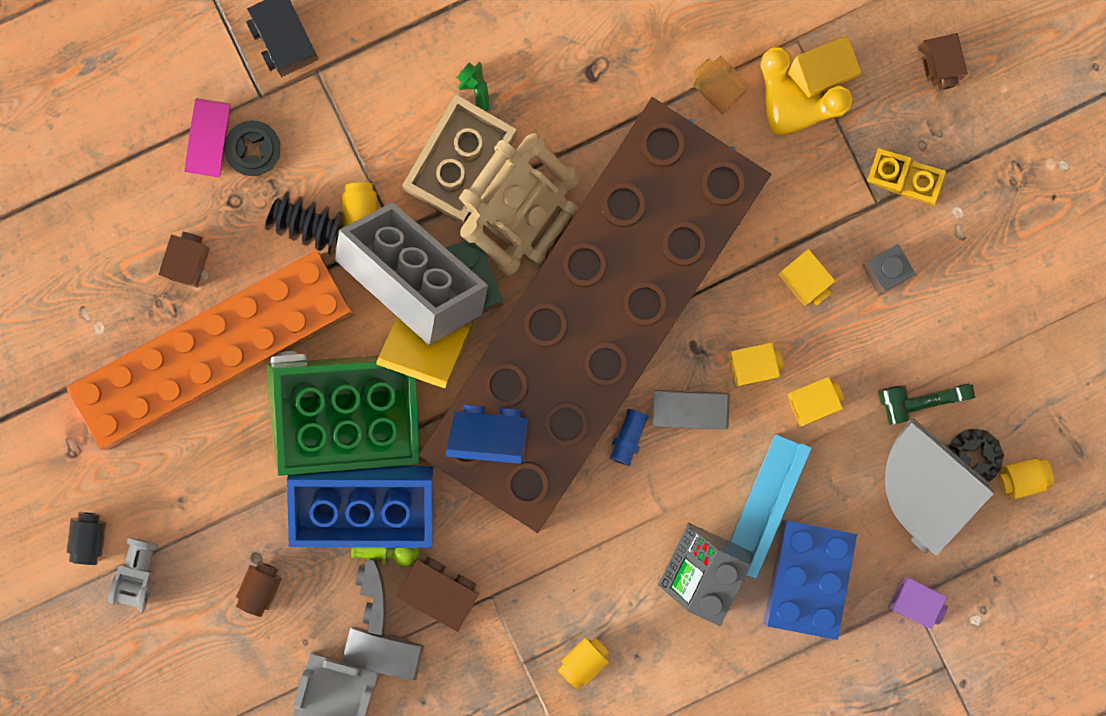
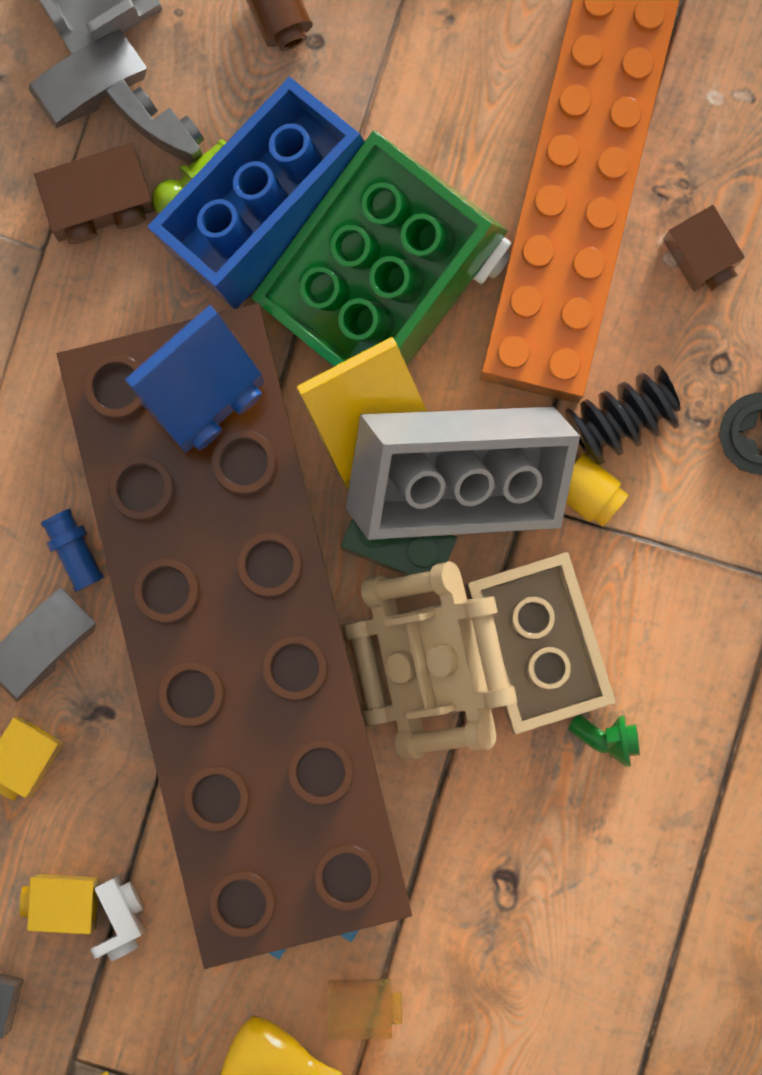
camera: 135 degrees right, 0 degrees up
(780, 247) = (122, 908): none -> white bracket

